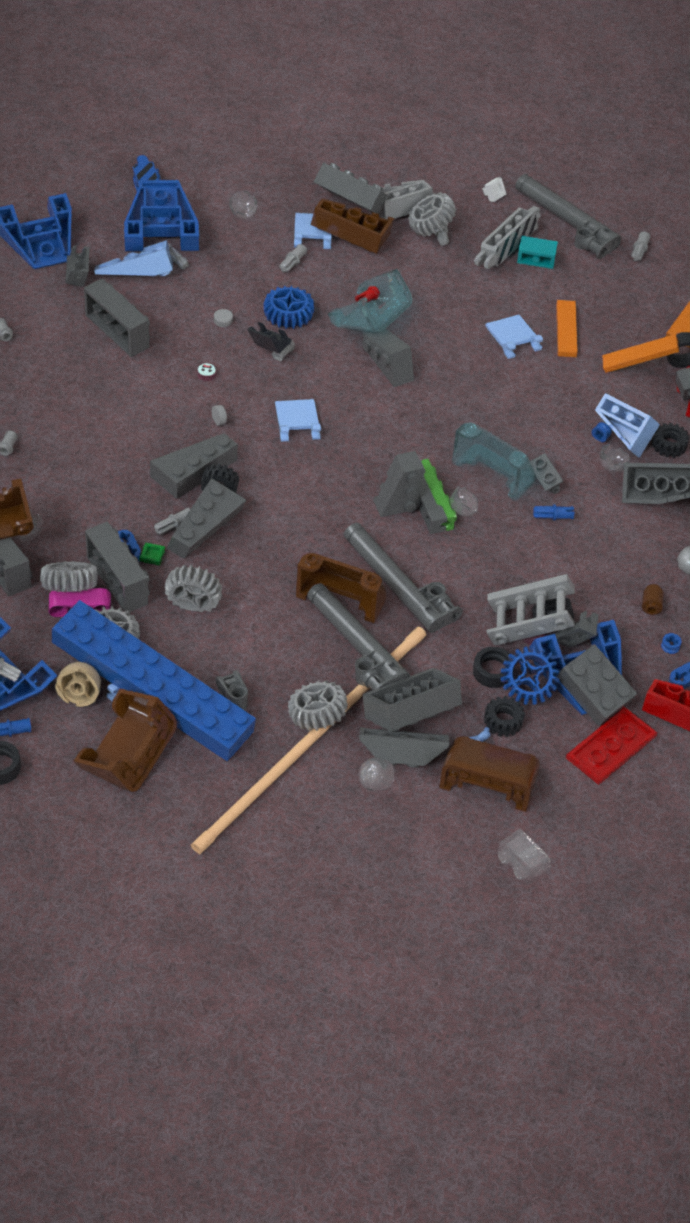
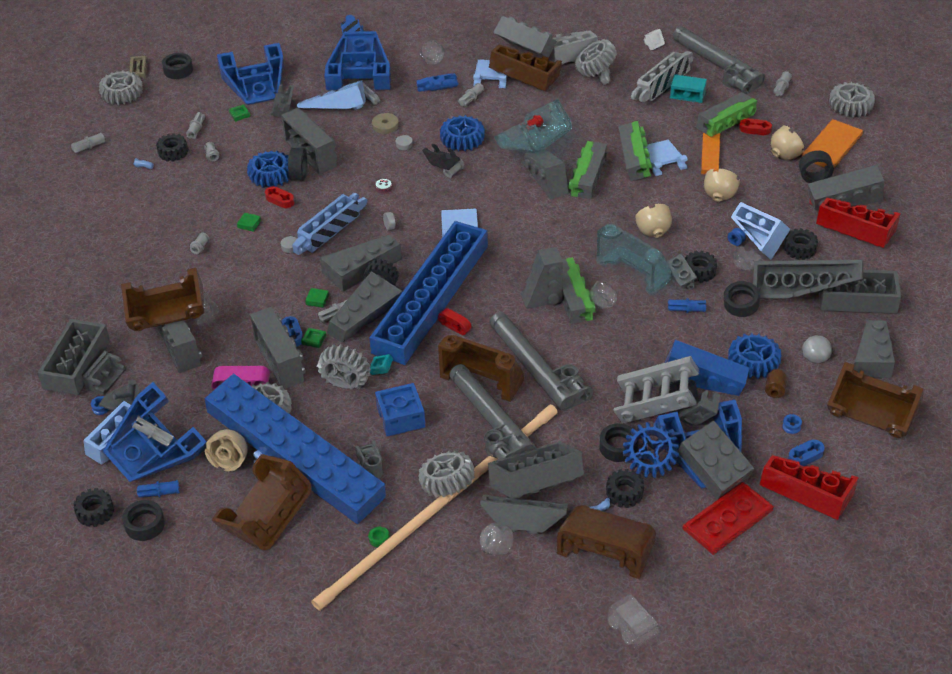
camera: 10 degrees right, 5 degrees down
(27, 280) = (239, 112): none -> green tile
(59, 416) = (249, 222): none -> green tile
(69, 576) = (232, 355): light grey gear -> none
(80, 350) = (268, 169): none -> blue gear
(90, 387) = (276, 196): none -> red beam
(107, 346) = (297, 164): none -> black tyre
(110, 443) = (286, 244): none -> light grey tile
(149, 507) = (317, 297): none -> green tile
(152, 418) = (328, 222): none -> medium blue hinge
(198, 293) = (385, 123): none -> dark tan piece
(231, 583) = (381, 364): none -> teal tile
(252, 774) = (378, 536): none -> green tile
(253, 242) = (437, 82): none -> blue hinge
(260, 635) = (400, 409): none -> blue piece
(275, 500) = (429, 292): none -> blue brick
(305, 533) = (454, 321): none -> red beam
(434, 352) = (588, 170): none -> dark grey piece
(484, 329) = (634, 150): none -> piece
(512, 415) = (654, 221): none -> tan cylinder
(568, 459) = (703, 259): none -> black tyre
(581, 371) = (721, 184): none -> tan cylinder
(582, 285) = (726, 114): none -> bright green piece
(591, 588) = (714, 371): none -> blue wedge
(613, 299) = (755, 126): none -> red beam
(616, 492) = (741, 310): none -> black tyre
(627, 572) = (756, 353): none -> blue gear
(640, 353) = (776, 169): orange tile -> none
(649, 322) = (786, 144): none -> tan cylinder

